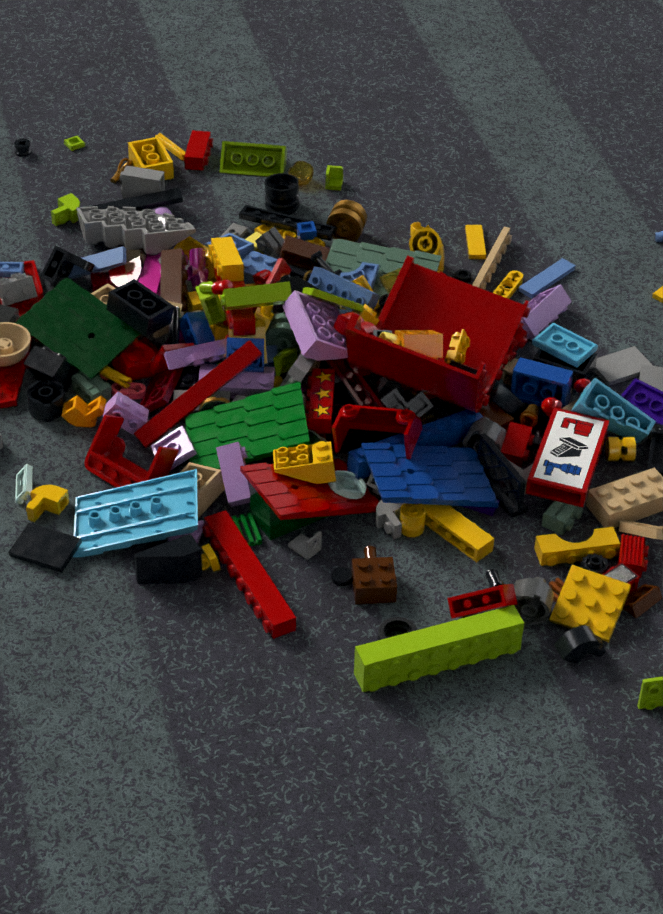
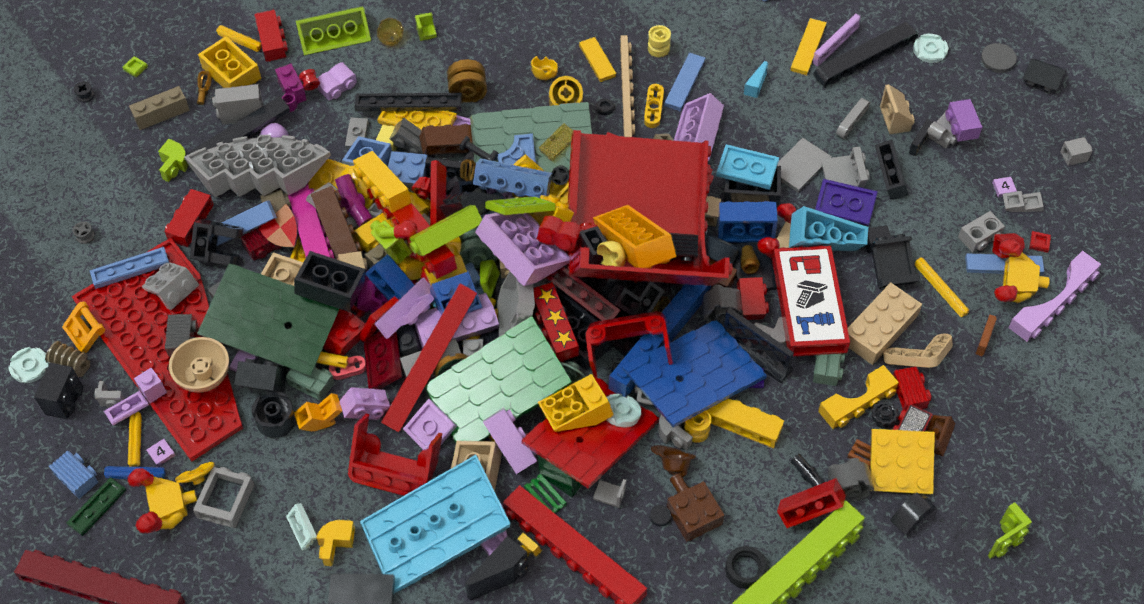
camera: 20 degrees left, 15 degrees up
(66, 241) = (193, 208): none -> red brick
(76, 172) = (159, 108): none -> dark tan brick
(174, 327) = (368, 288): black axle -> none
(194, 190) = (291, 86): none -> magenta hinge
(211, 184) = (309, 79): none -> red wheel
(234, 194) = (336, 81): none -> lavender brick
(282, 193) = (385, 67): black wheel -> none
(306, 231) = (436, 111): blue panel -> none
(377, 539) = (673, 459): none -> reddish brown piece
(459, 343) = (659, 208): yellow hinge -> none
(538, 241) = (659, 41): none -> light yellow wheel
(613, 293) = (756, 81): none -> medium azure slope
(613, 448) = (849, 266): yellow wheel -> none

